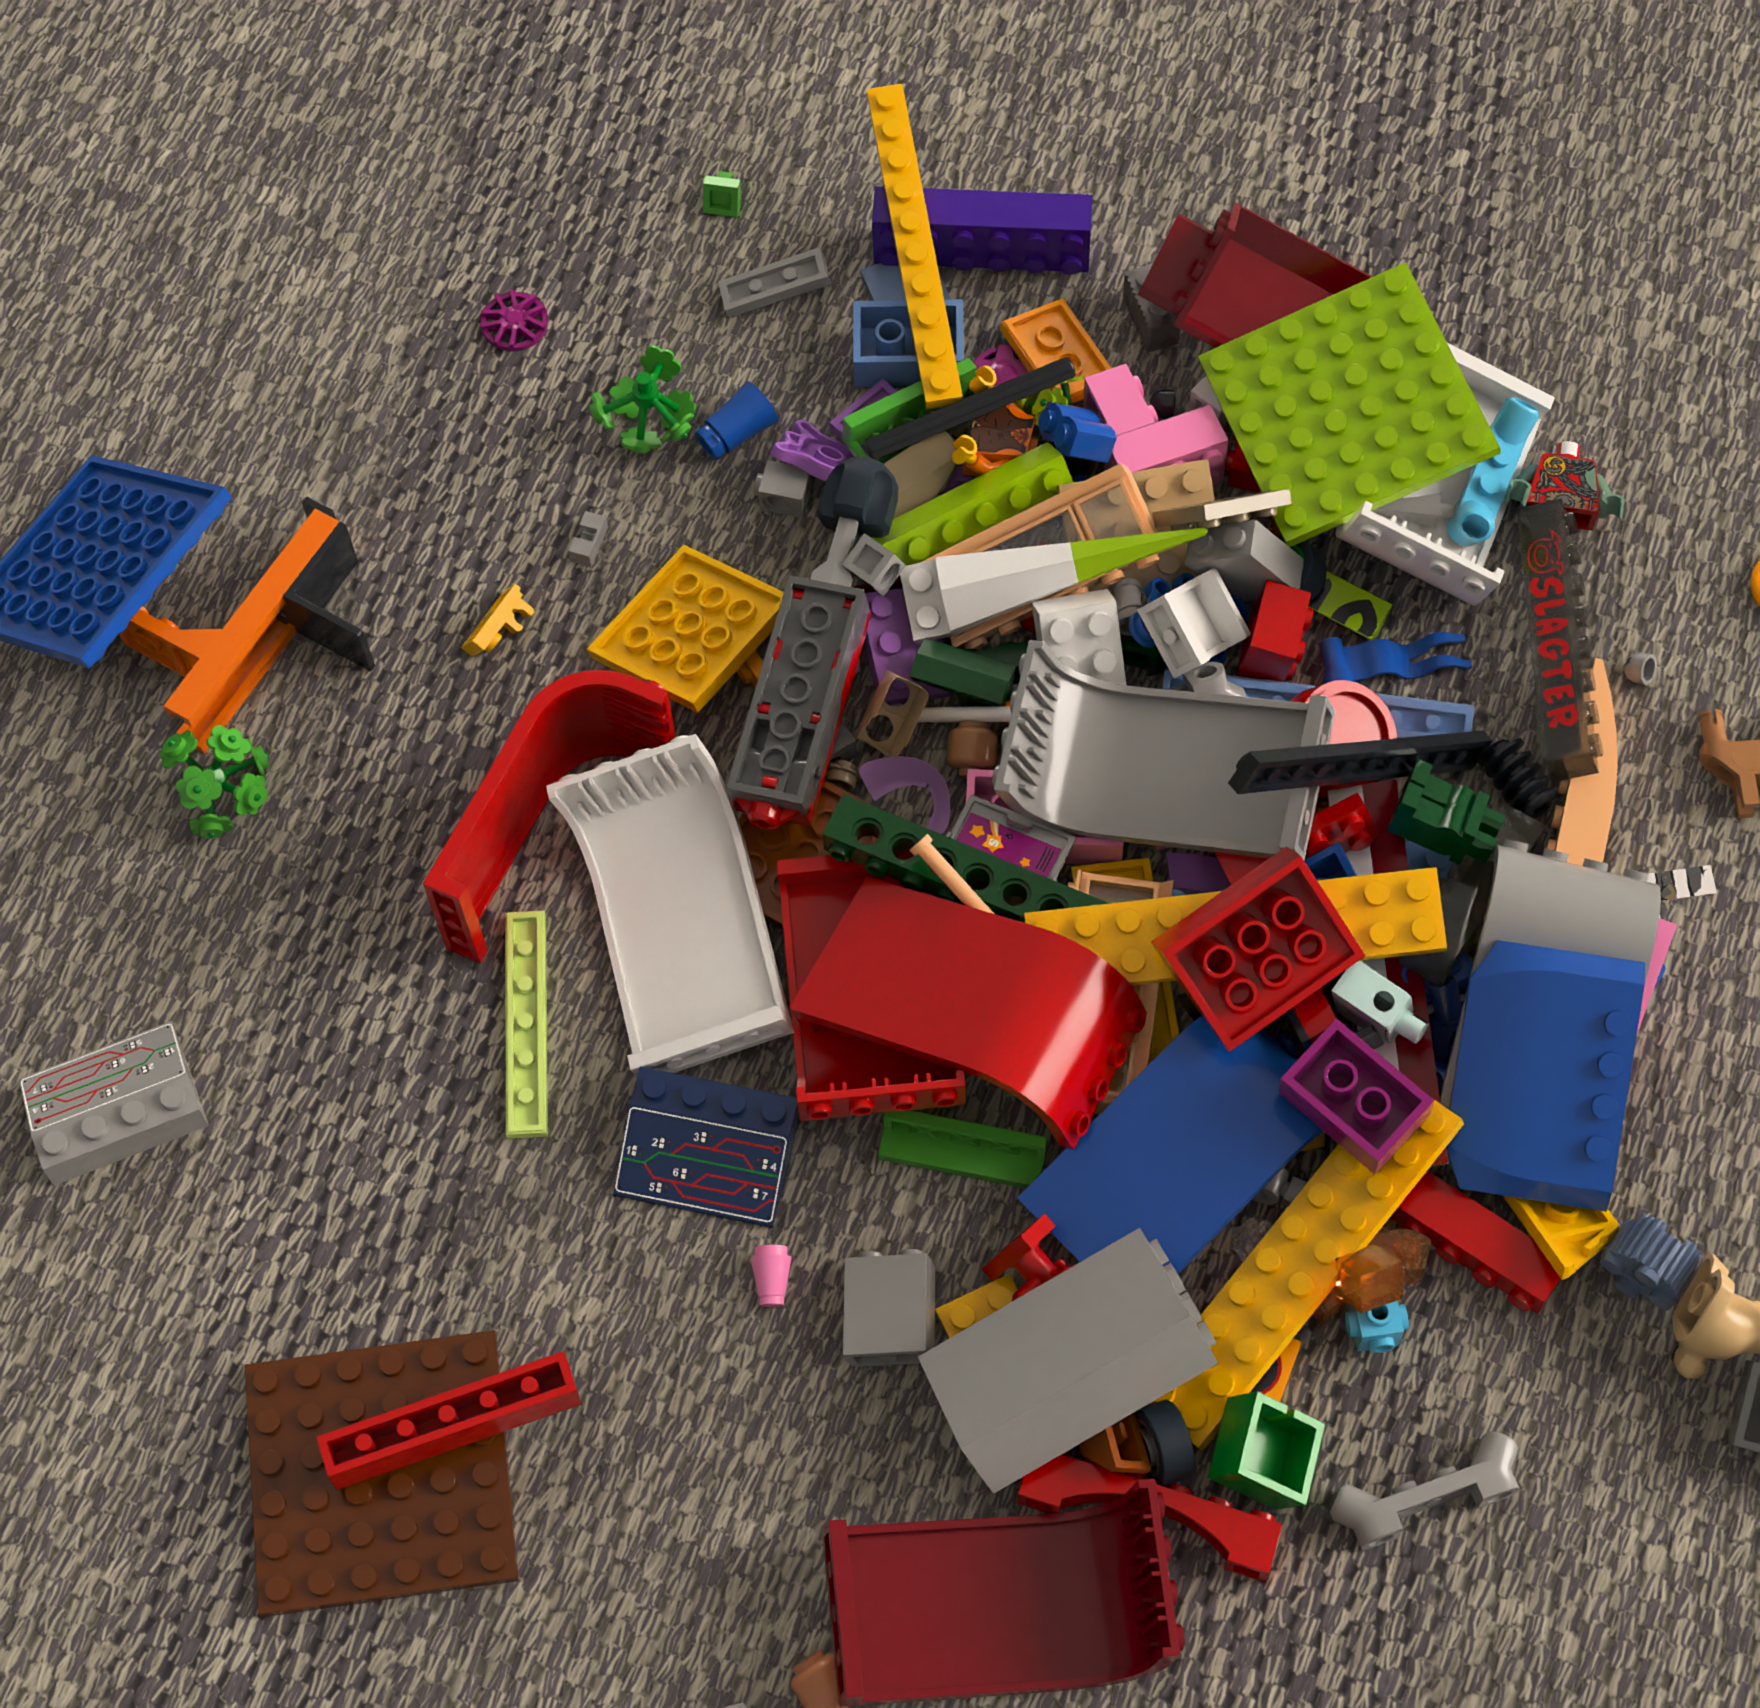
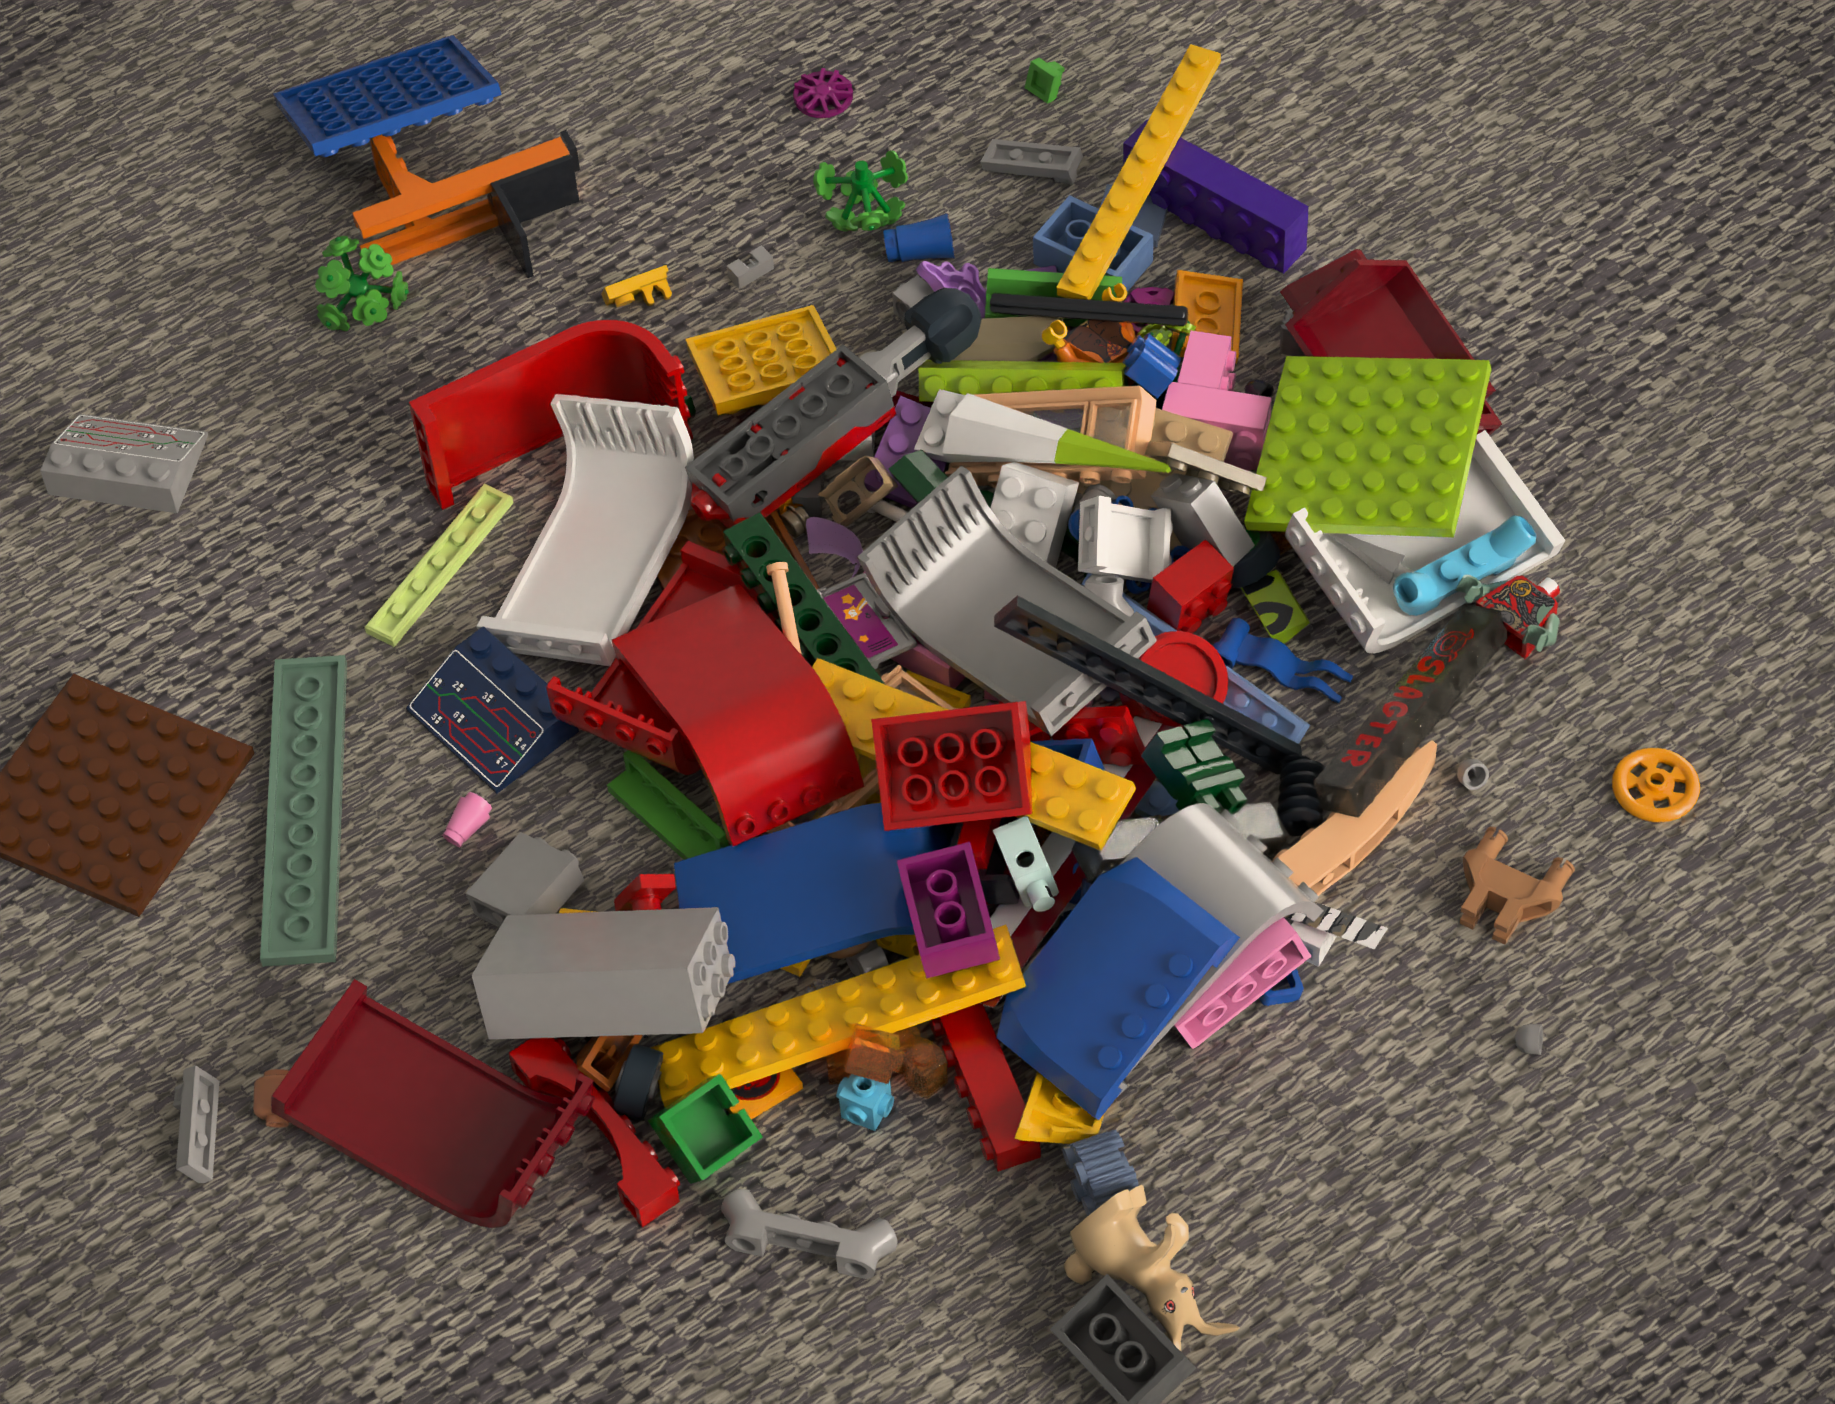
camera: 35 degrees right, 10 degrees down
(448, 1420) = (167, 775): red brick -> none
(614, 1375) = (304, 812): none -> sand green plate
(874, 564) = (916, 373): light grey brick -> none

